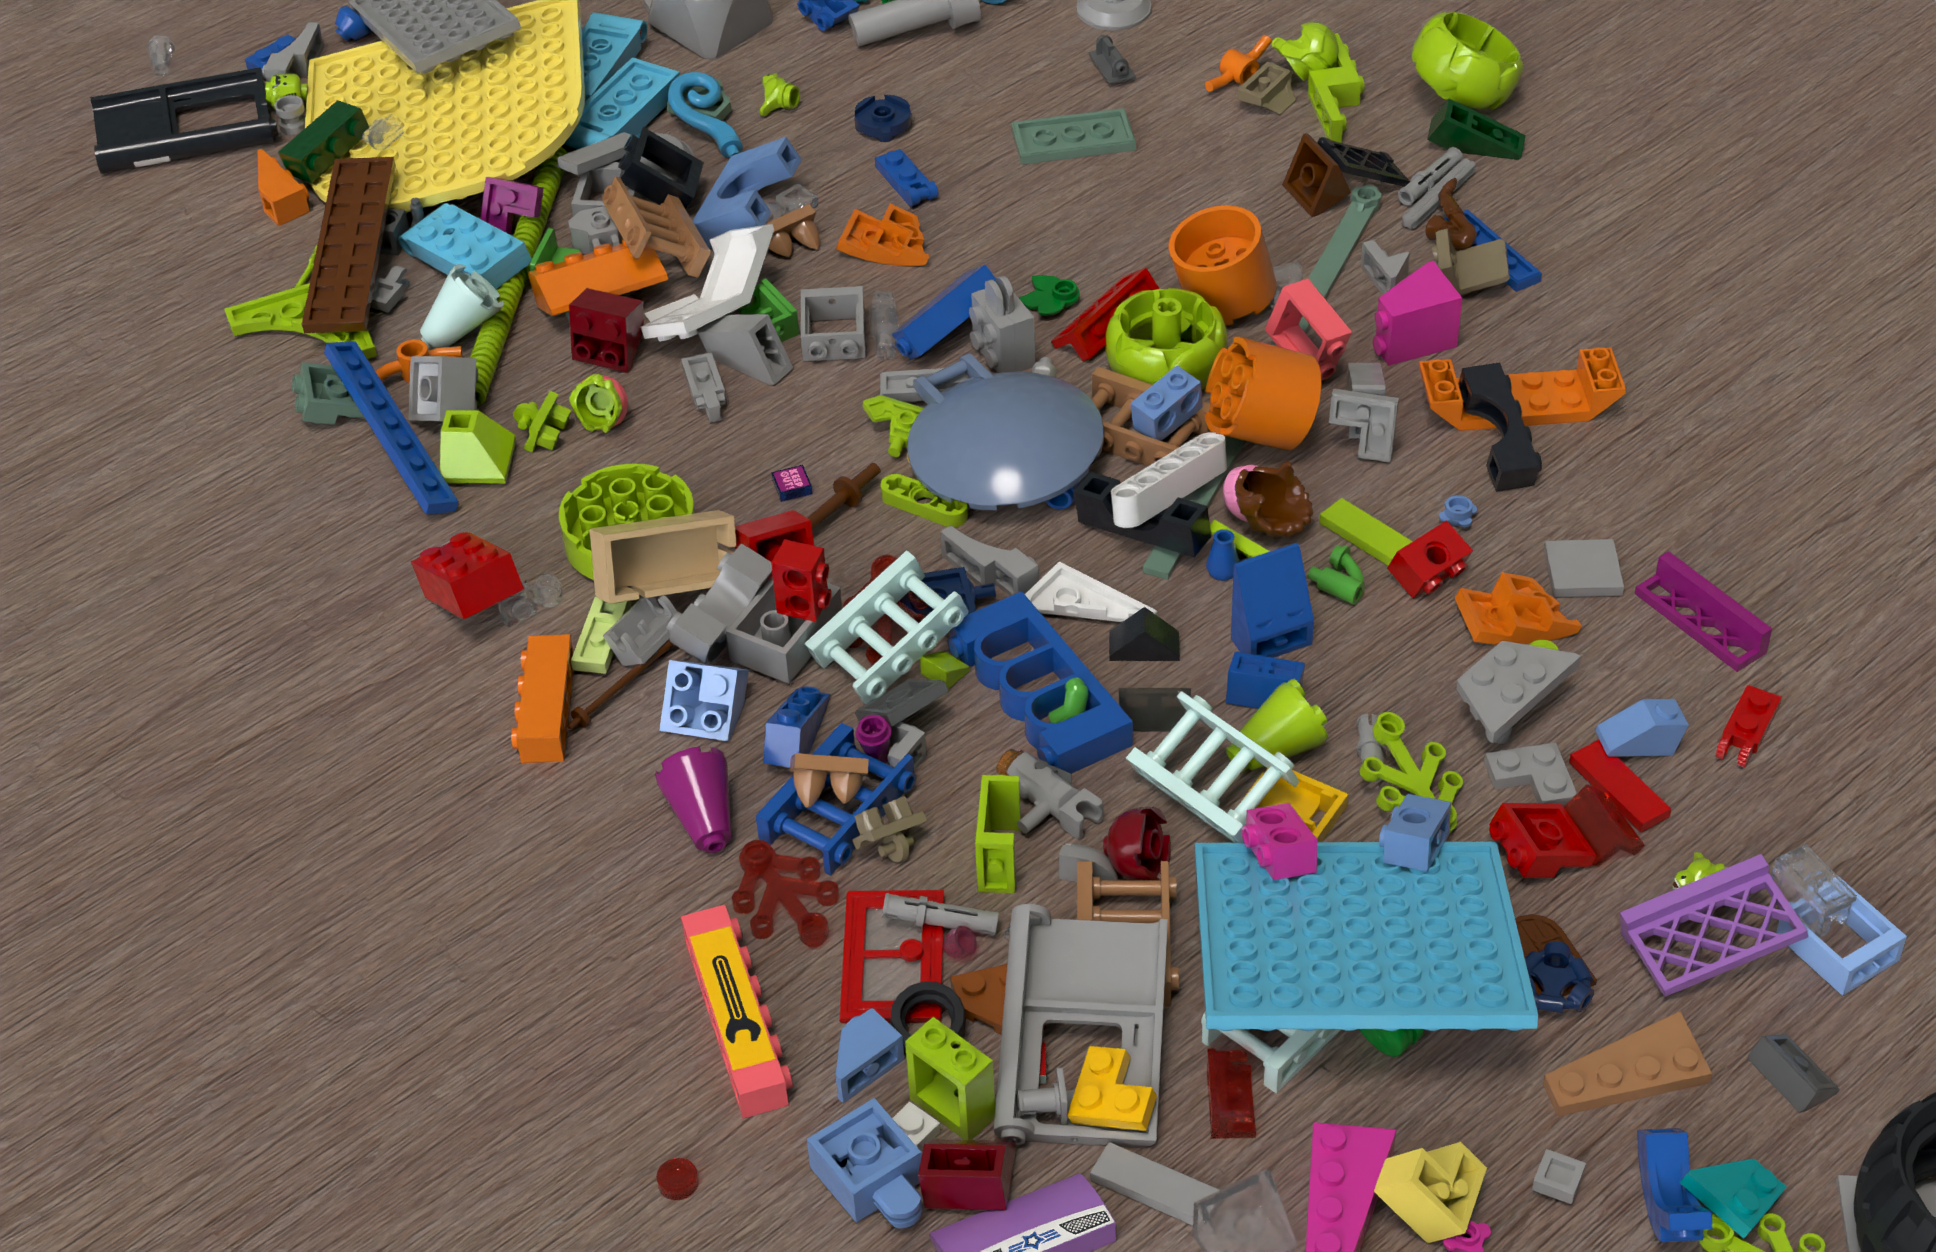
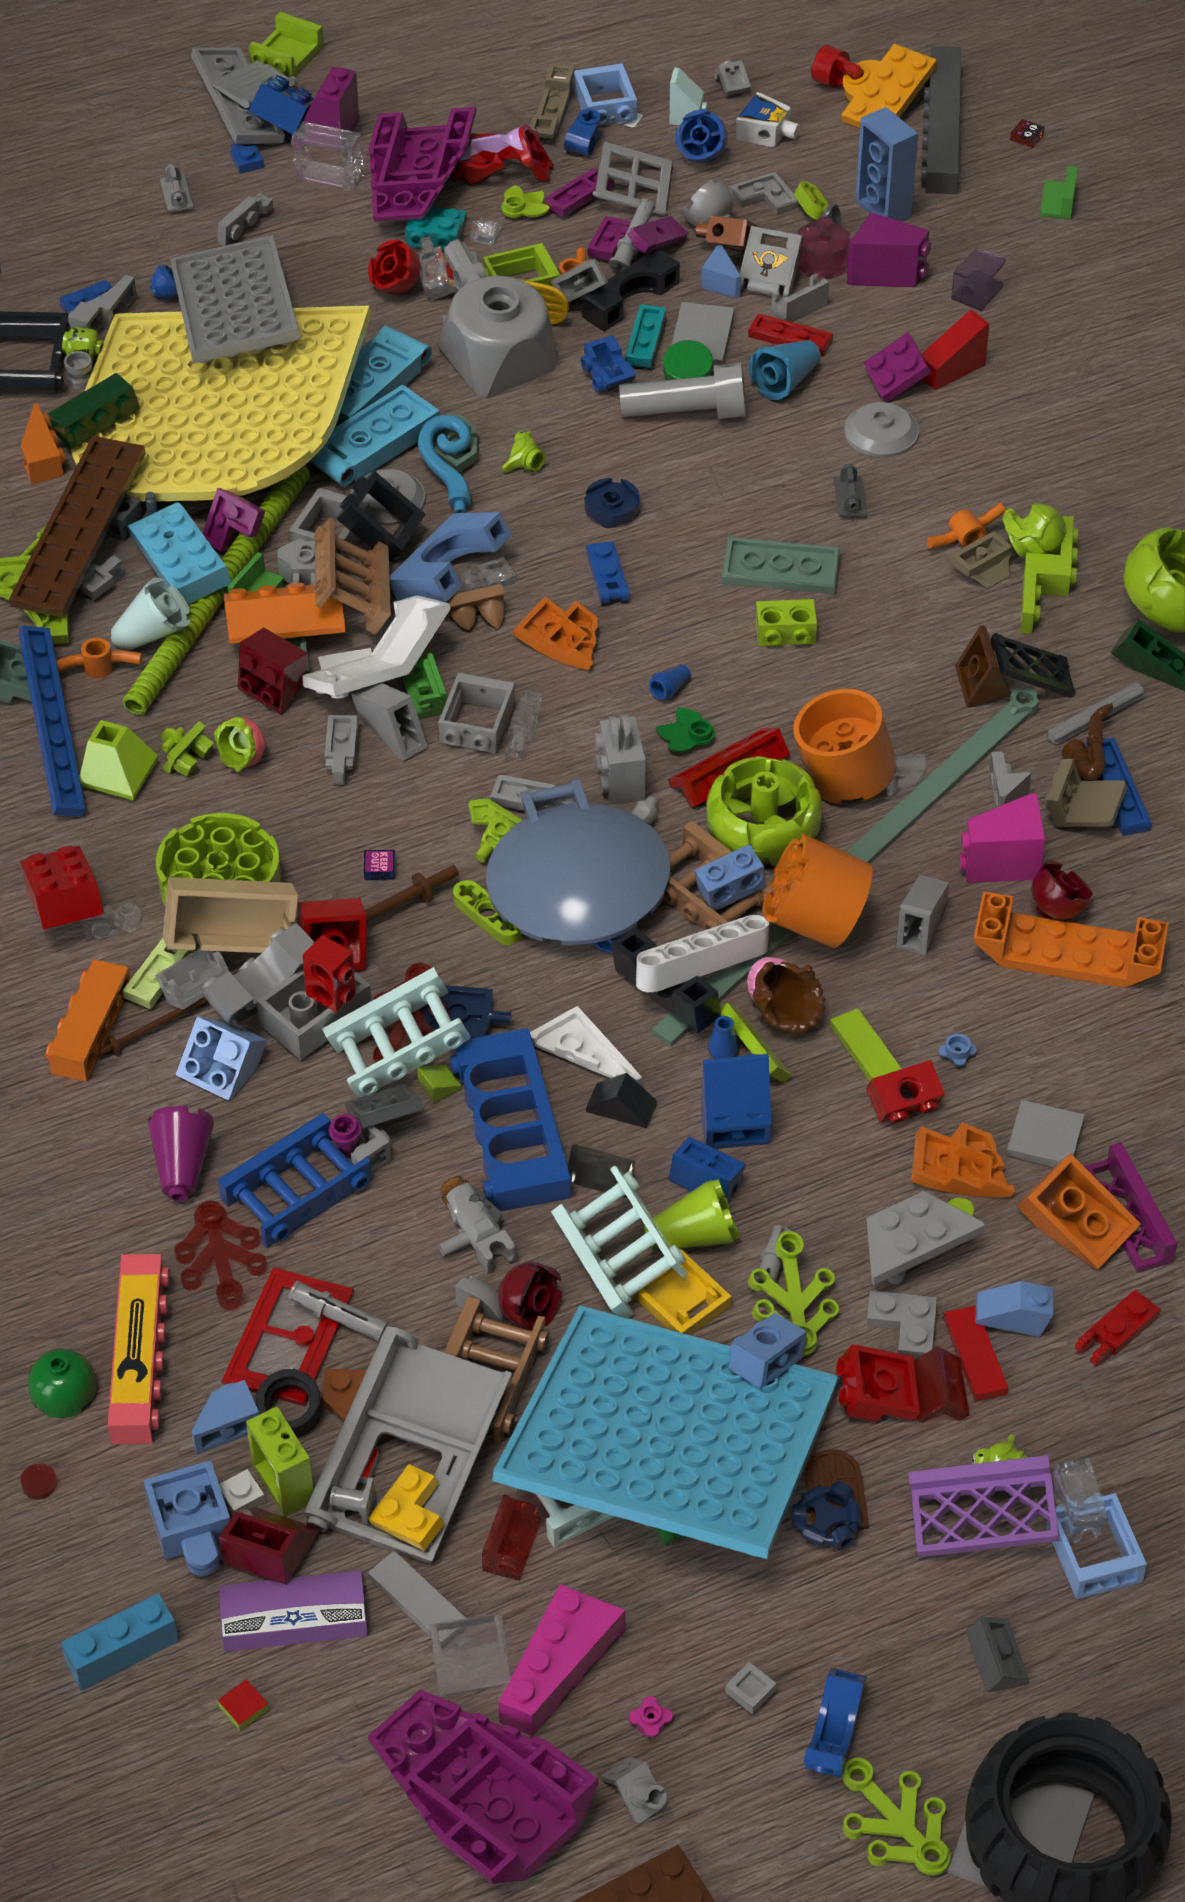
camera: 15 degrees right, 5 degrees up
(383, 132) = (147, 415): clear piece -> none
(441, 385) = (107, 694): light grey slope -> none
(594, 155) = (328, 484): light grey tile -> none
(663, 1068) = (62, 1383): none -> green cylinder
(794, 725) = (286, 1104): blue slope -> none
(811, 773) = (275, 1155): medium nougat tile -> none
(900, 820) = (339, 1215): dark tan hips -> none
(941, 314) = (574, 729): blue slope -> none
(960, 942) = (348, 1336): clear pink hinge -> none
(987, 564) = (516, 993): light grey slope -> none
(996, 851) = (418, 1225): lime panel -> none
(1012, 256) = (668, 682): none -> blue cone
(1075, 701) = (531, 1145): bright green arm -> none
(1104, 180) = (786, 622): none -> lime brick
(1280, 841) = (645, 1326): dark pink brick -> none
(1305, 300) = (894, 834): coral window -> none
(1345, 587) = (815, 1092): bright green plant -> none
(1371, 413) = (914, 937): light grey tile -> none
(1426, 179) = (1088, 696): light grey pin -> none
(1433, 1189) = (633, 1673): light yellow brick -> none
(1489, 395) = (1027, 1009): black arch -> none
(1490, 346) = (1059, 893): none -> dark red cylinder
(1635, 1067) = (866, 1611): medium nougat wing -> none
(1656, 626) = (1078, 1212): none -> orange slope
(1735, 1192) = (888, 1745): teal wing -> none

